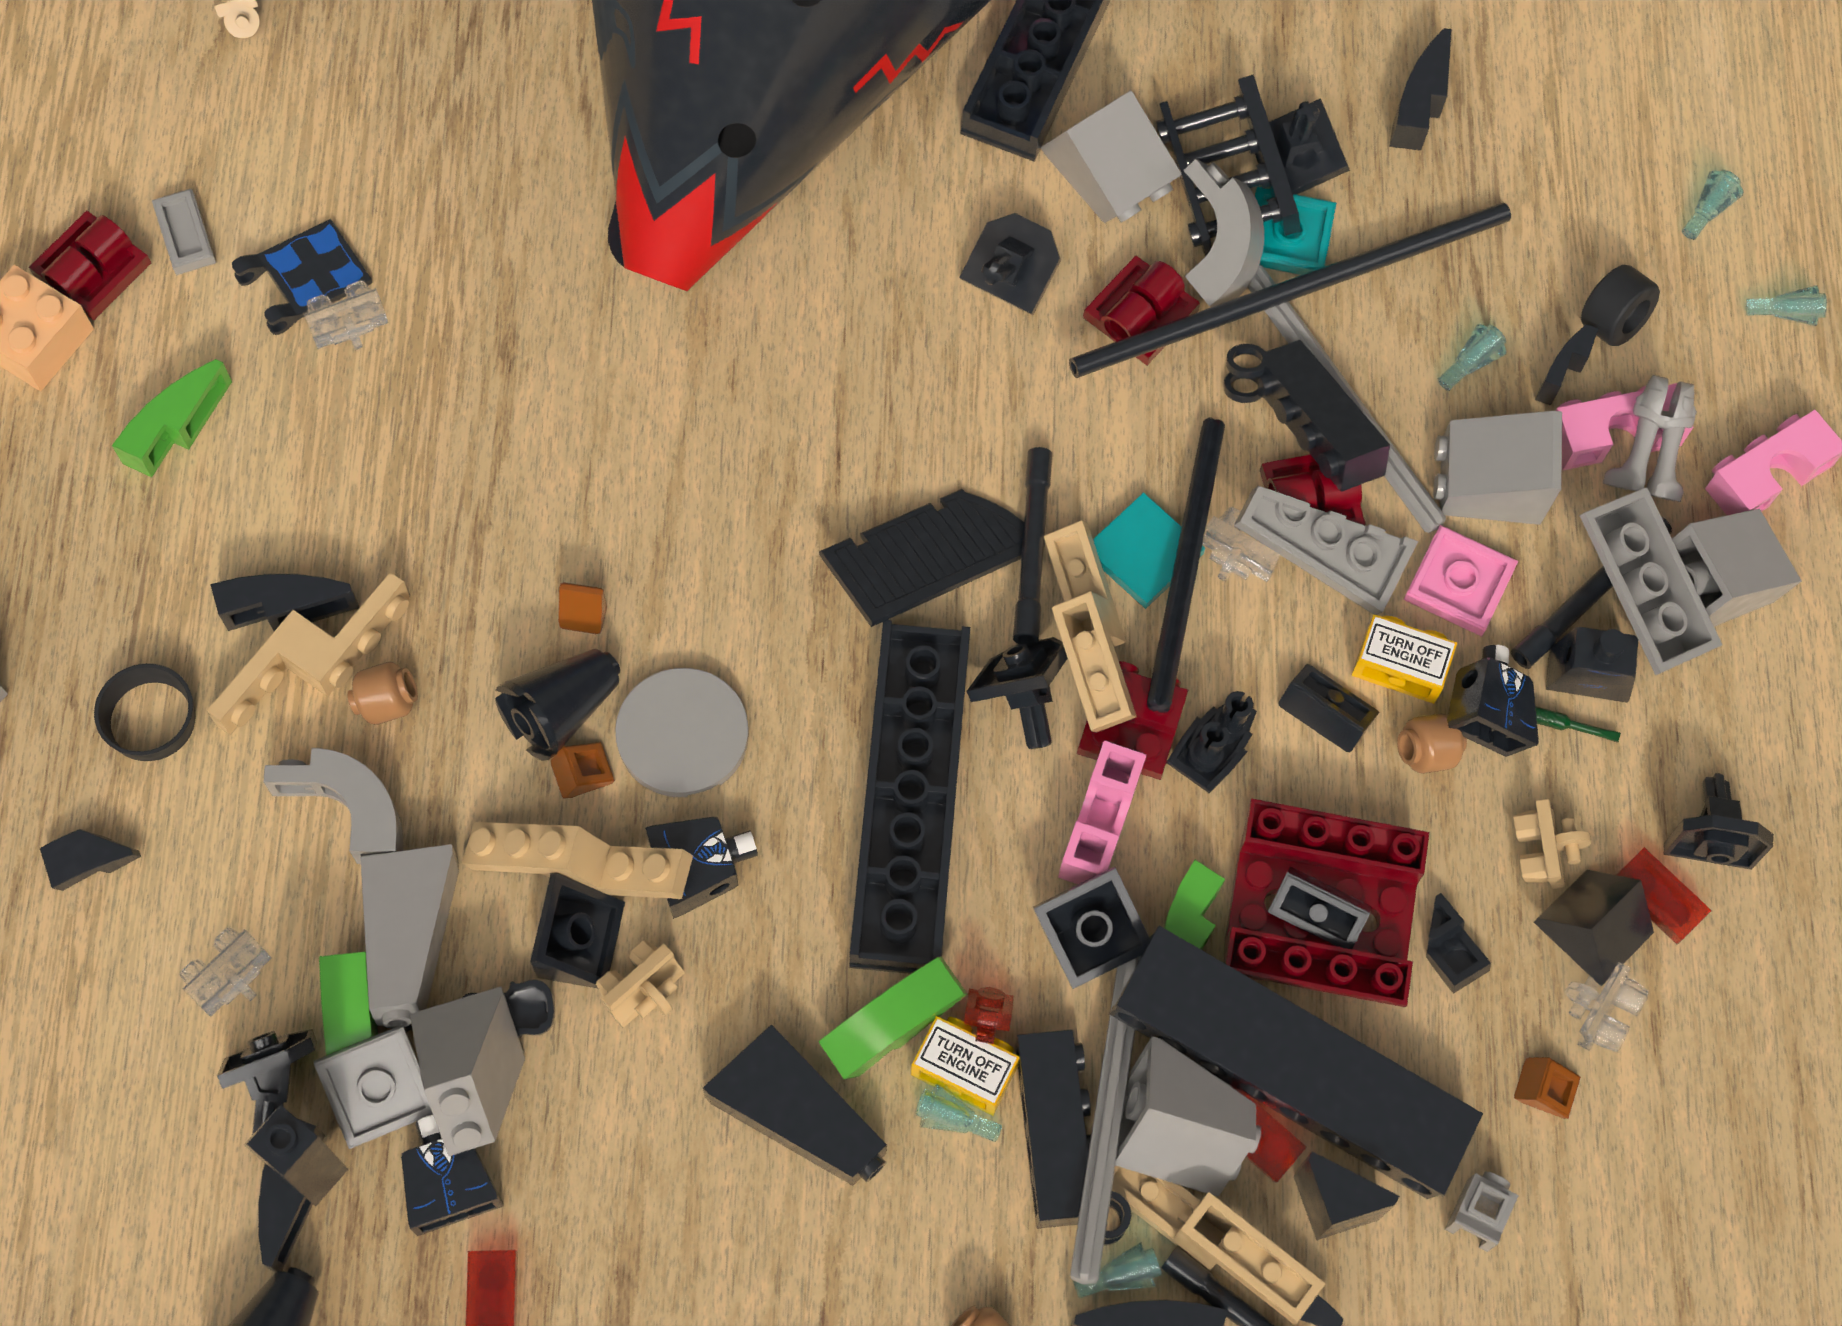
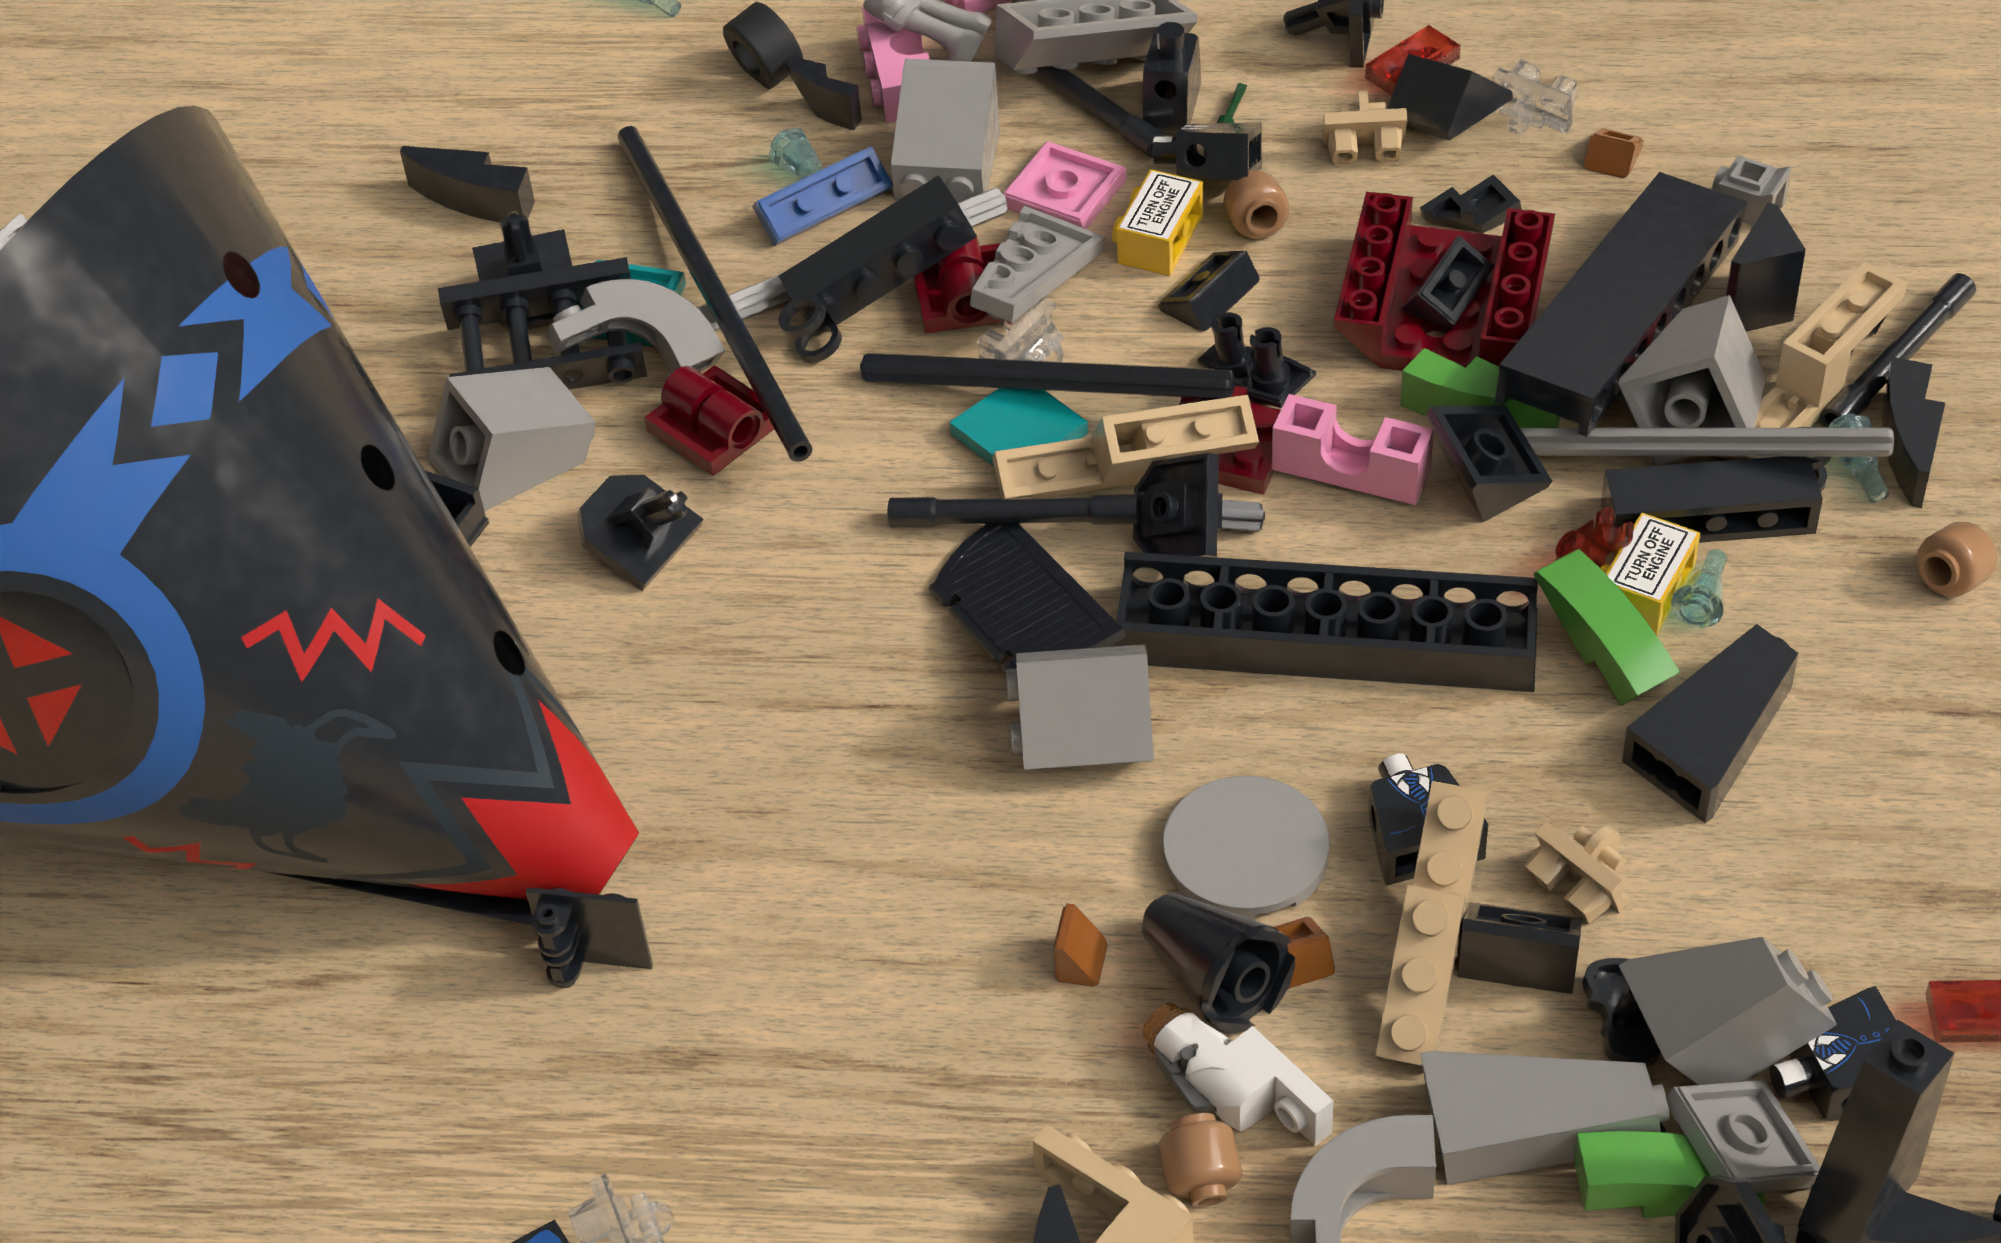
camera: 80 degrees left, 20 degrees down
(452, 717) = (1236, 1077): none -> white plate
(587, 255) = (587, 929): none -> black hinge
(797, 596) = (1081, 707): none -> light grey brick
(1425, 372) = (822, 195): none -> tile

